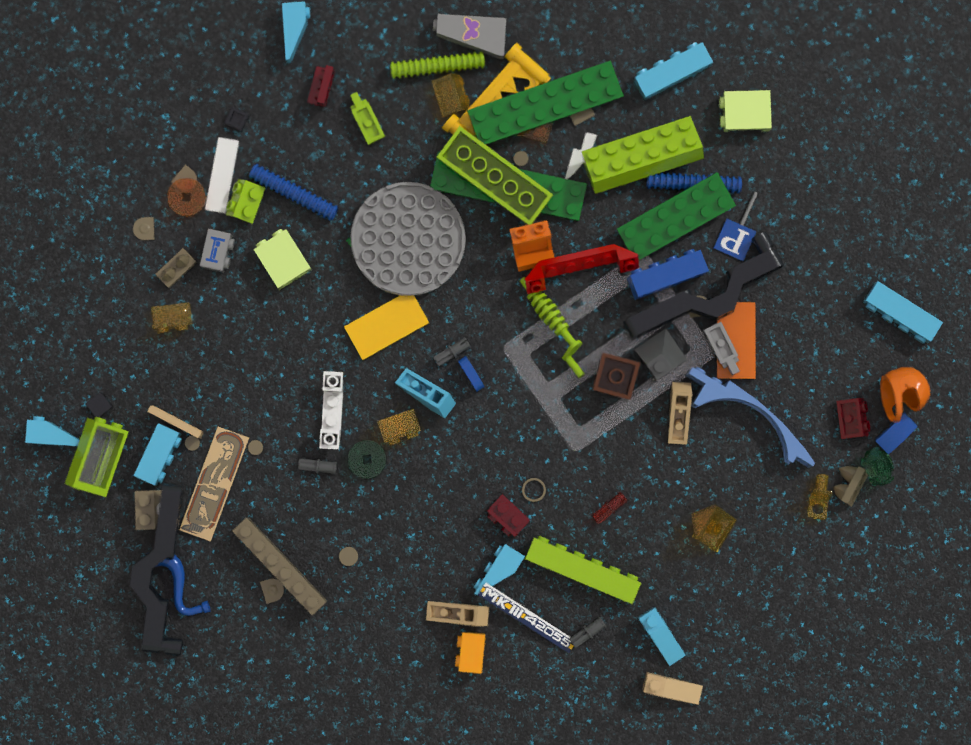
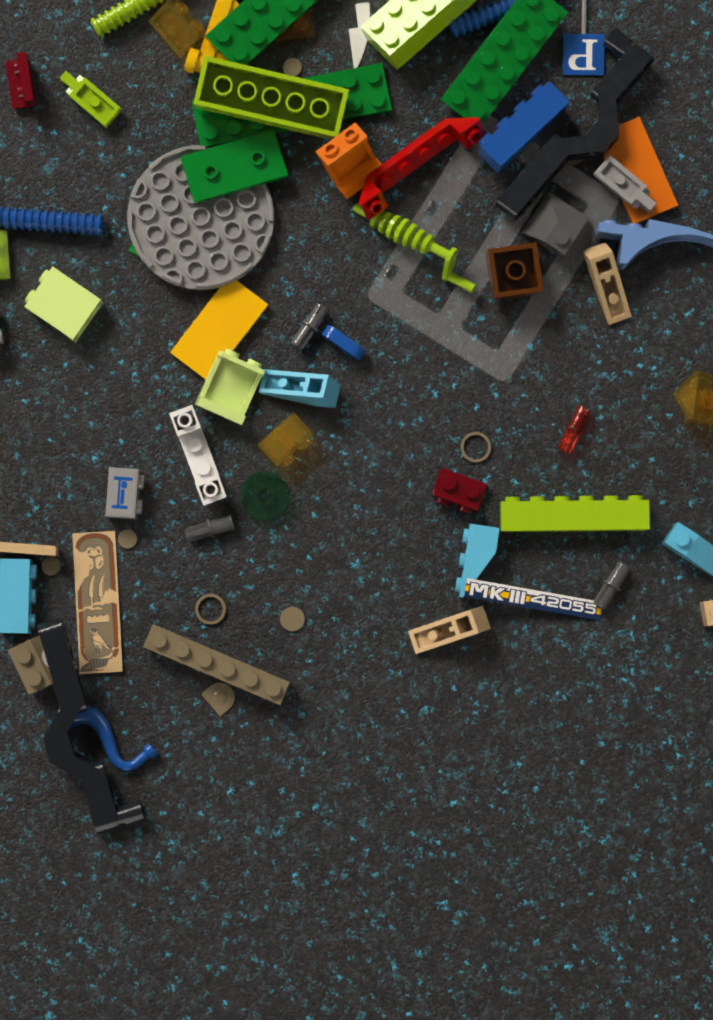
camera: 20 degrees left, 0 degrees up
(266, 414) = (124, 493): none -> light grey brick
(293, 534) = (210, 622): none -> dark tan piece
(376, 370) = (230, 386): none -> yellowish green panel
(447, 213) = (234, 166): none -> green plate
(471, 652) = (485, 668): light orange brick -> none

